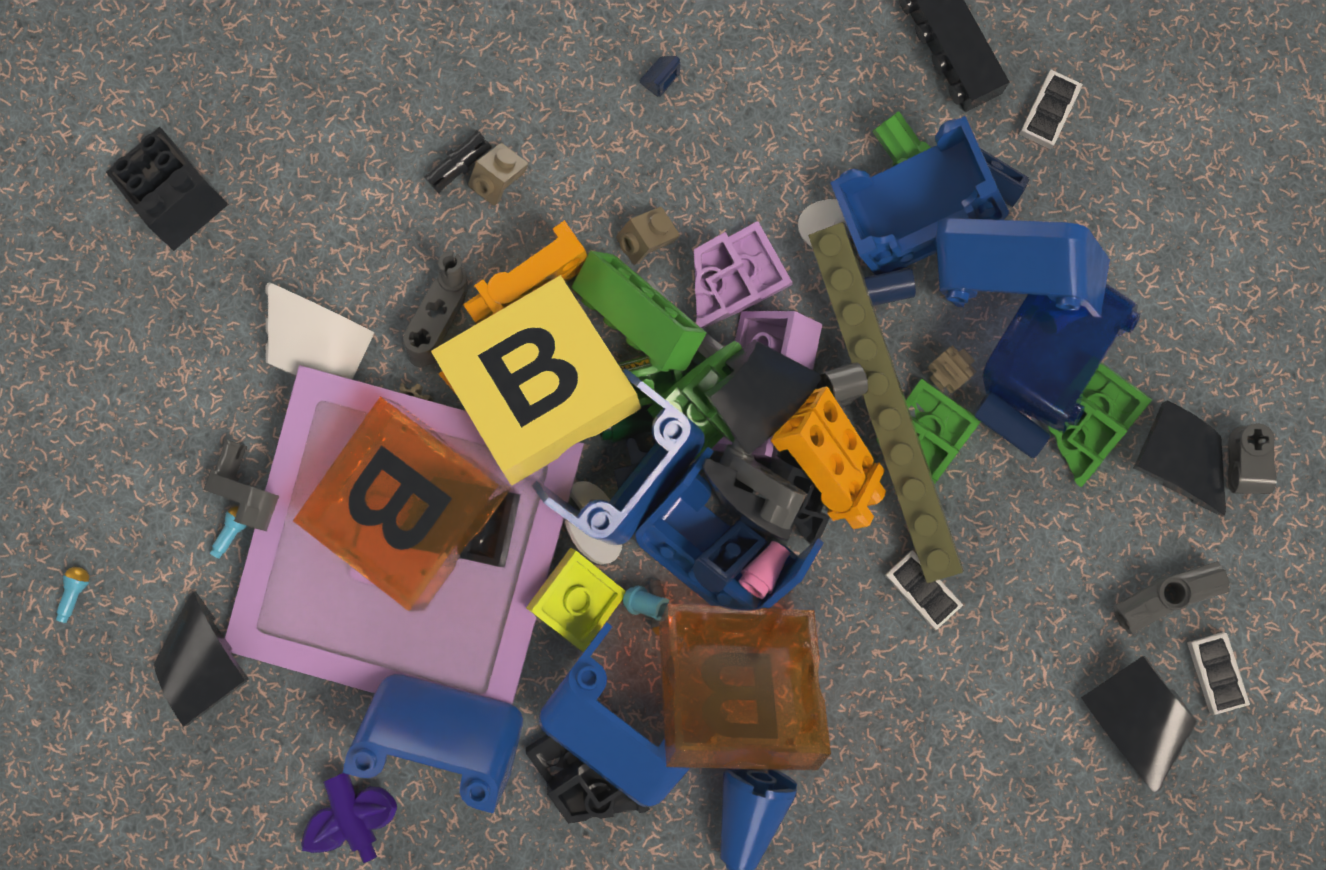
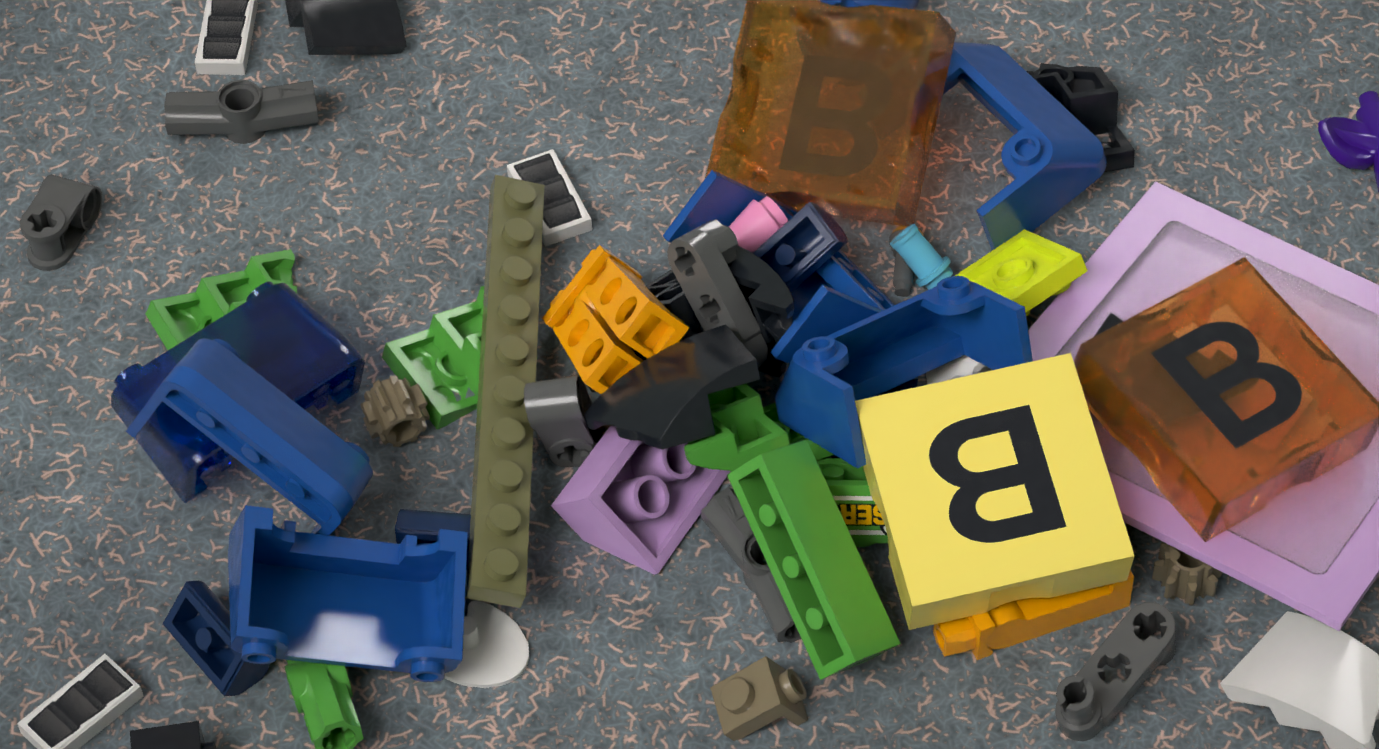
camera: 160 degrees left, 30 degrees down
(442, 731) = (1248, 165): blue windscreen -> none
(561, 257) = (961, 661): light orange hips -> none
(735, 274) = (648, 610): lavender slope -> none
(1011, 424) = (354, 320): dark blue brick -> none
(1185, 457) = (143, 238): black slope -> none

